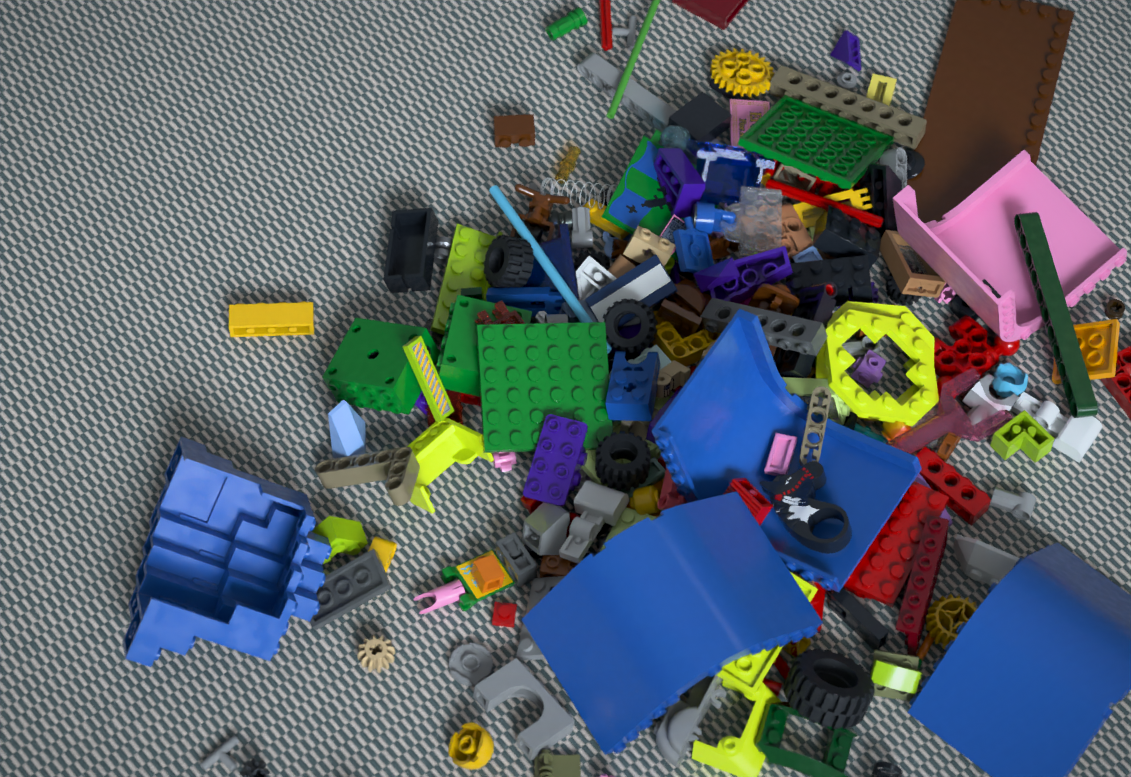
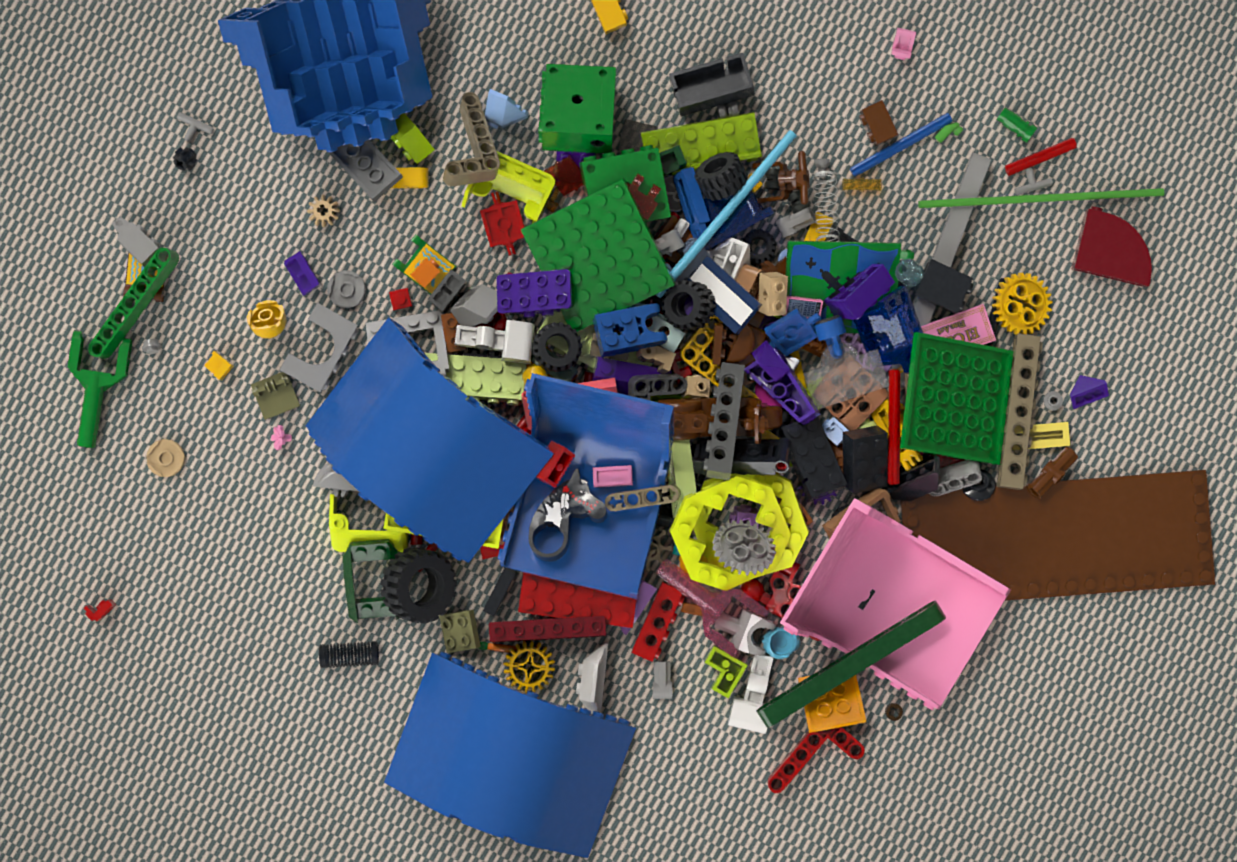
camera: 70 degrees right, 30 degrees up
(428, 378) = (572, 154): tile -> none
(434, 699) = (302, 273): none -> dark purple hinge
(443, 595) = (396, 244): bright pink piece -> none
(445, 87) = (903, 43): none -> bright pink bracket
(467, 487) = (503, 223): none -> red plate
(543, 122) = (901, 144): none -> blue axle
(547, 82) = (947, 130): none -> bright green arm
(895, 676) = (451, 630): lime slope -> none
(901, 353) = (744, 547): none -> light grey gear
(918, 98) = (1053, 472): none -> reddish brown piece

